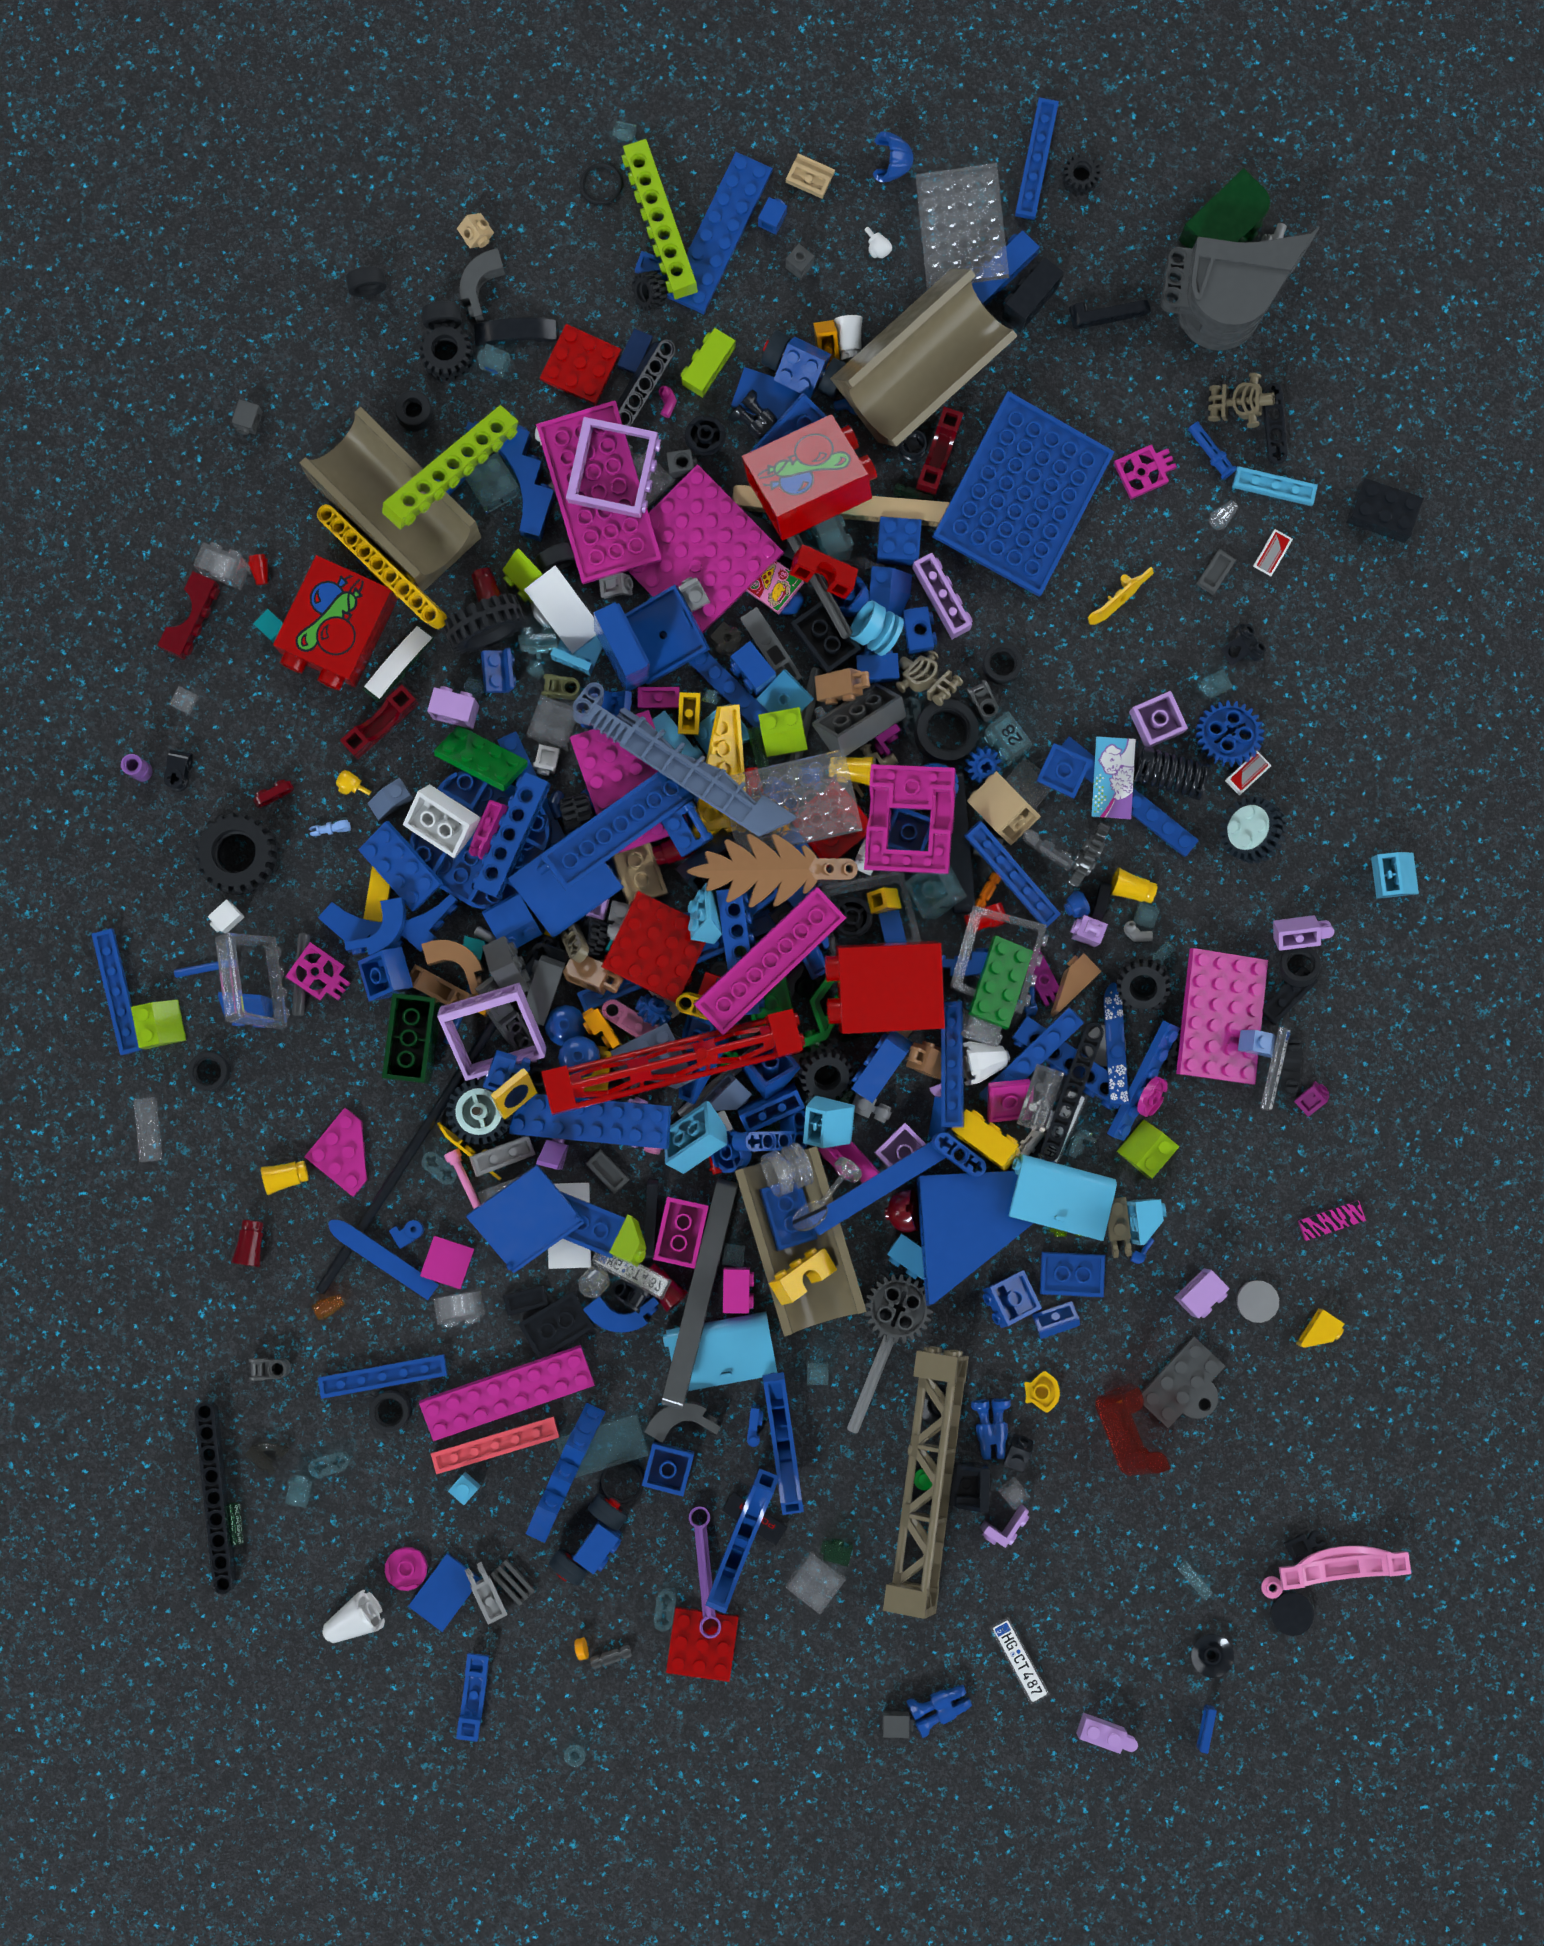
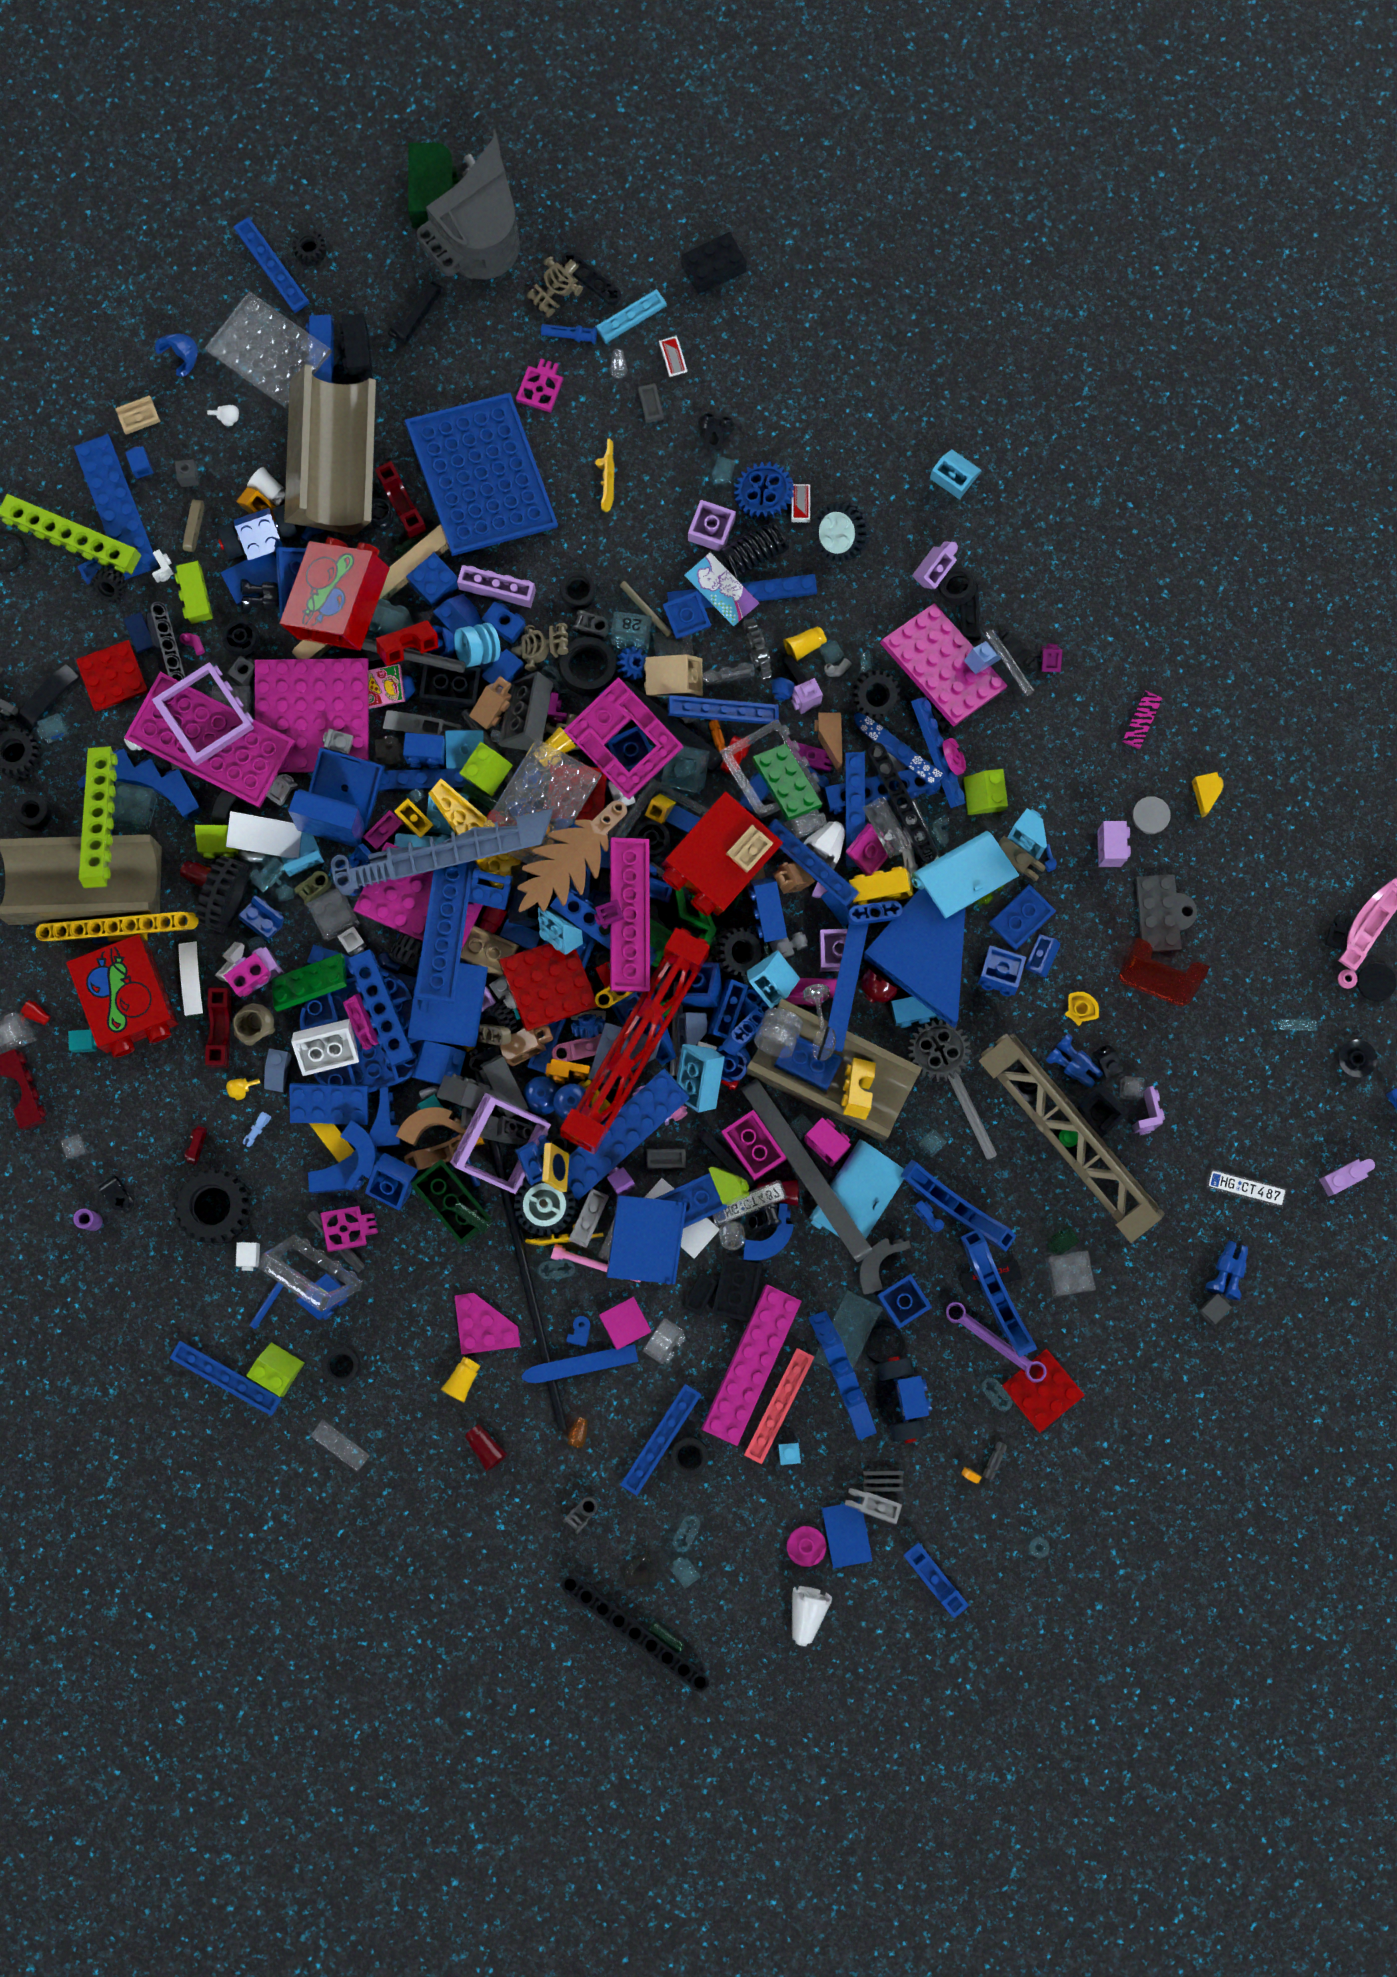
camera: 45 degrees left, 5 degrees down
(408, 746) = (253, 1023): none -> dark tan helmet
(410, 1066) = (471, 1217): none -> clear green pin
(439, 701) = (244, 970): none -> dark pink brick
(447, 678) = (232, 955): none -> white slope
(677, 887) = (520, 935): none -> blue tile
(710, 314) = (165, 572): none -> white bracket
(752, 944) = (608, 913): none -> magenta bracket
(761, 308) = (193, 525): none -> dark tan beam
(912, 1007) = (749, 848): none -> tan plate
(1039, 726) = (646, 609): none -> dark tan bar

